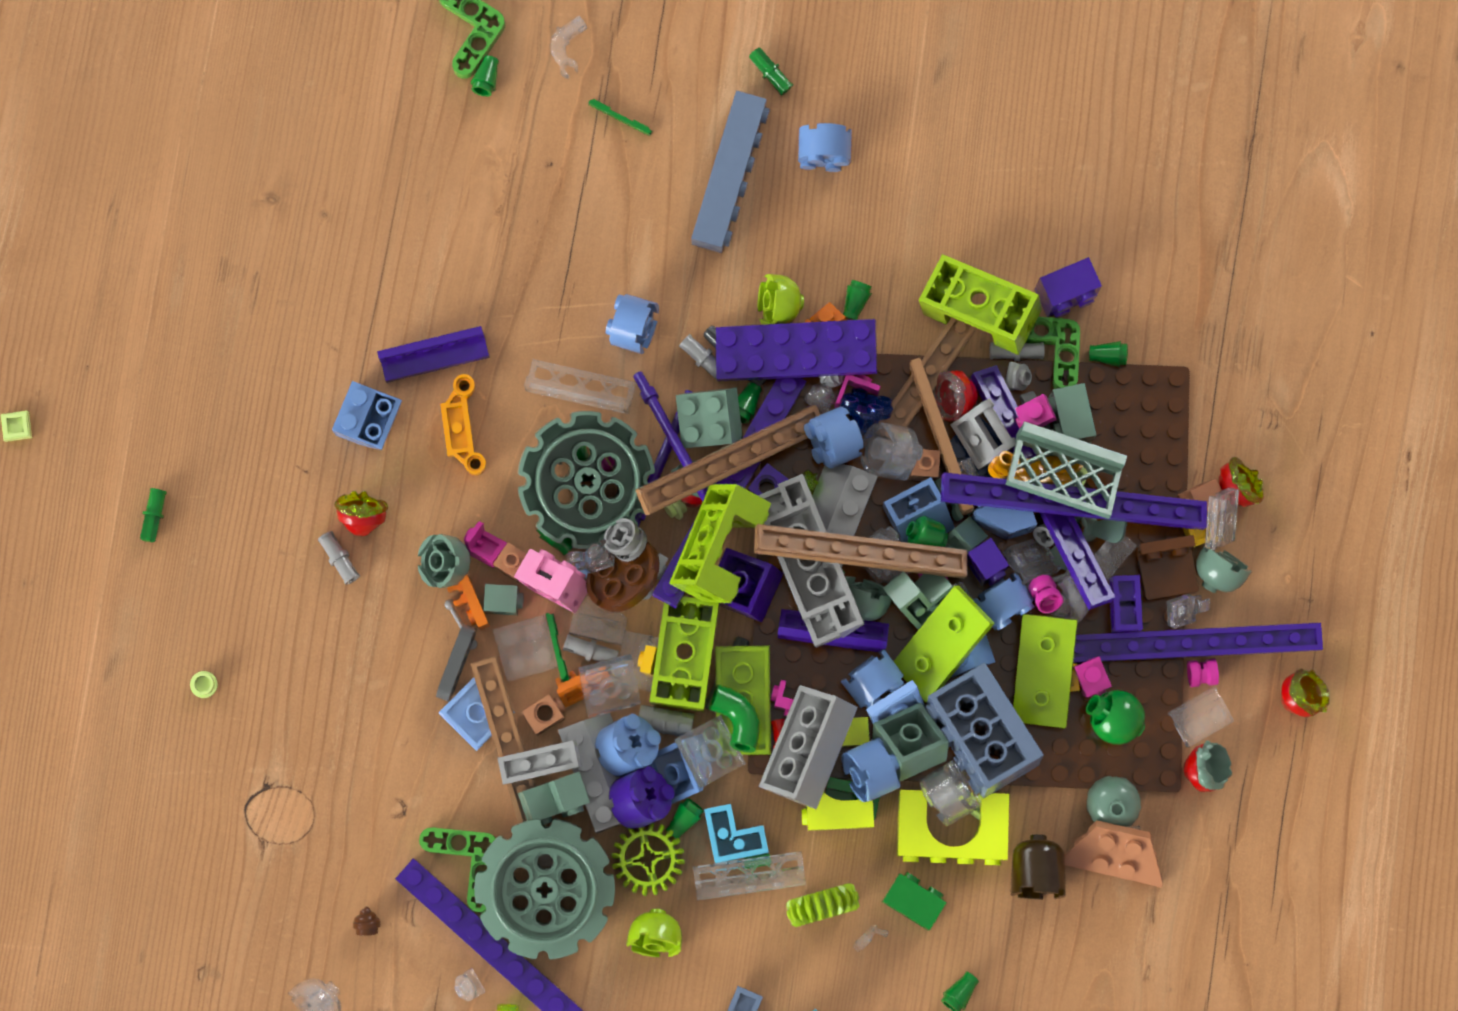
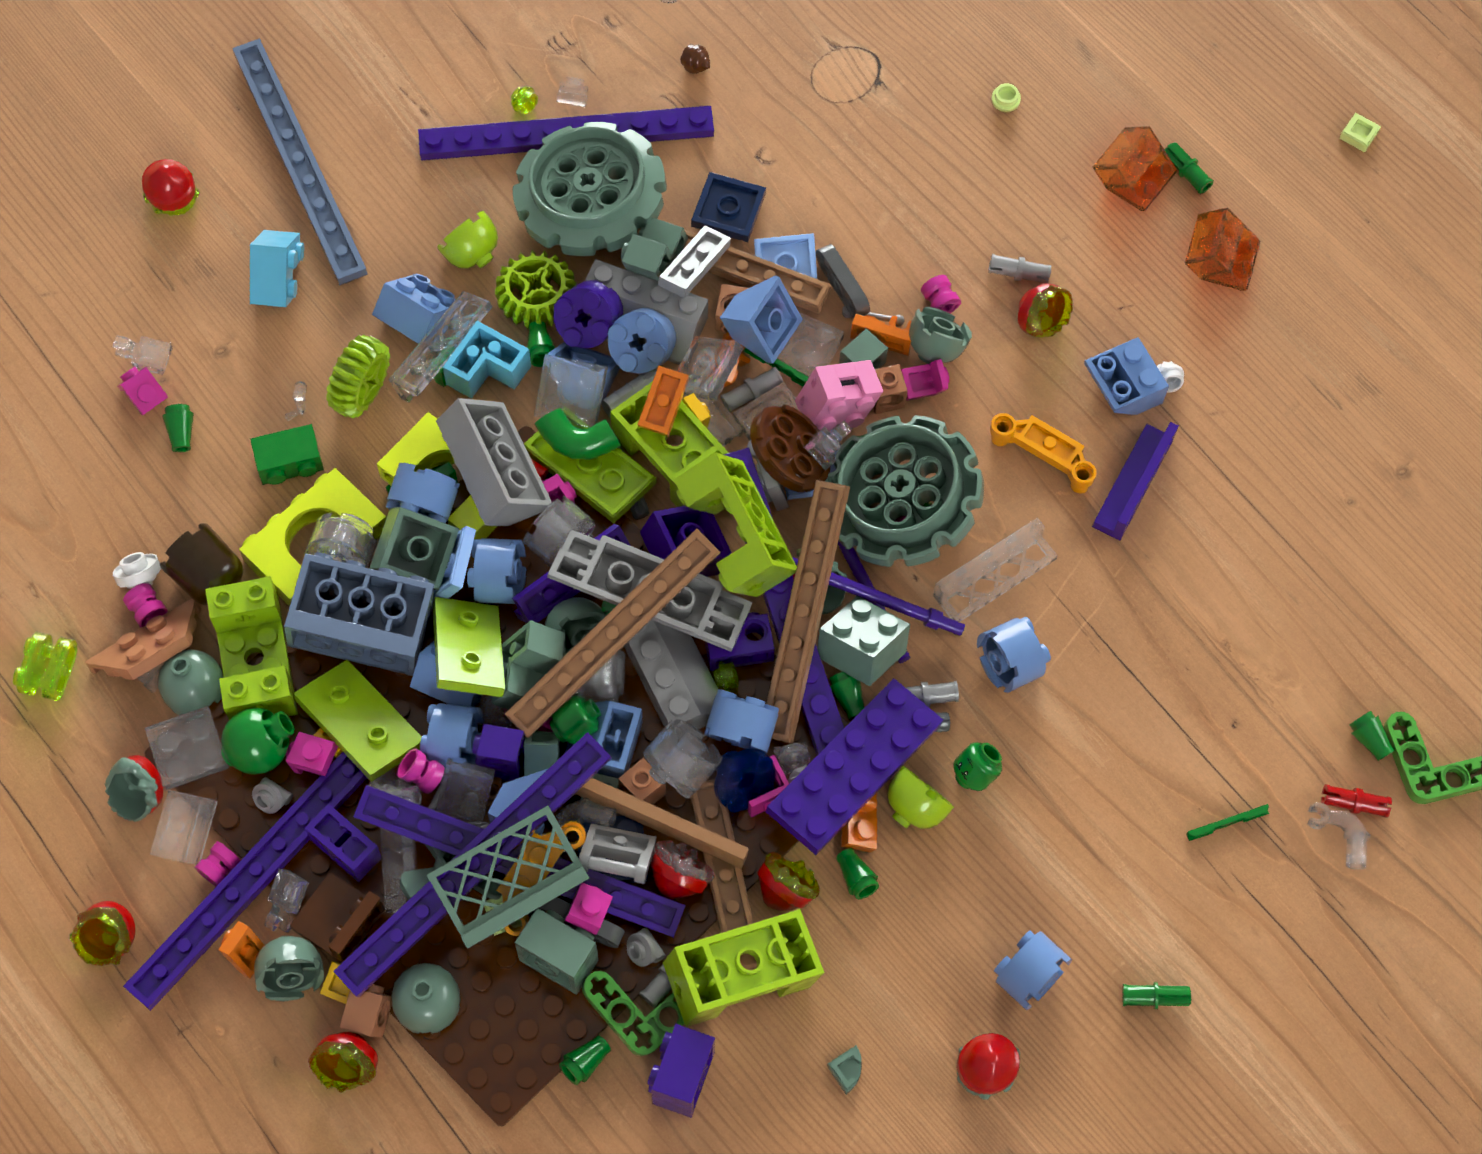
camera: 130 degrees right, 15 degrees down
(186, 548) = (1135, 167): none -> clear orange slope
(203, 437) = (1223, 249): none -> clear orange slope
(335, 394) = (1172, 374): none -> white plate
(408, 590) = (940, 295): none -> dark pink wheel
(466, 791) = (729, 206): none -> dark blue plate
(476, 856) = (696, 160): bright green beam -> none
(539, 53) = (1356, 800): none -> red pin
(543, 678) = (762, 318): none -> medium blue slope
(625, 540) = (814, 465): light grey wheel -> none
(671, 674) = (663, 401): none -> orange plate
(725, 284) = (977, 766): none -> green head
(729, 171) = (1086, 869): sand blue brick -> none
(733, 923) = (412, 305): none -> medium blue slope
(812, 665) = (554, 527): none -> clear brick
(900, 128) = (988, 1065): none -> red hair
(900, 331) = (786, 883): none -> hair
(974, 206) = (847, 1069): none -> sand green tile
(1078, 913) = (136, 569): none -> white plate
(1084, 758) = (249, 622): none -> lime plate
(1093, 885) = (144, 603): none -> dark pink wheel
(1136, 681) = (270, 796): none -> light grey plate
(1156, 761) = (186, 748): none -> clear plate
(1163, 472) = (425, 998): none -> sand green cylinder
(1184, 921) = (36, 657): none -> clear neon green brick
(1222, 518) = (328, 1000): clear plate -> none
(1238, 603) = (241, 948): none -> orange plate

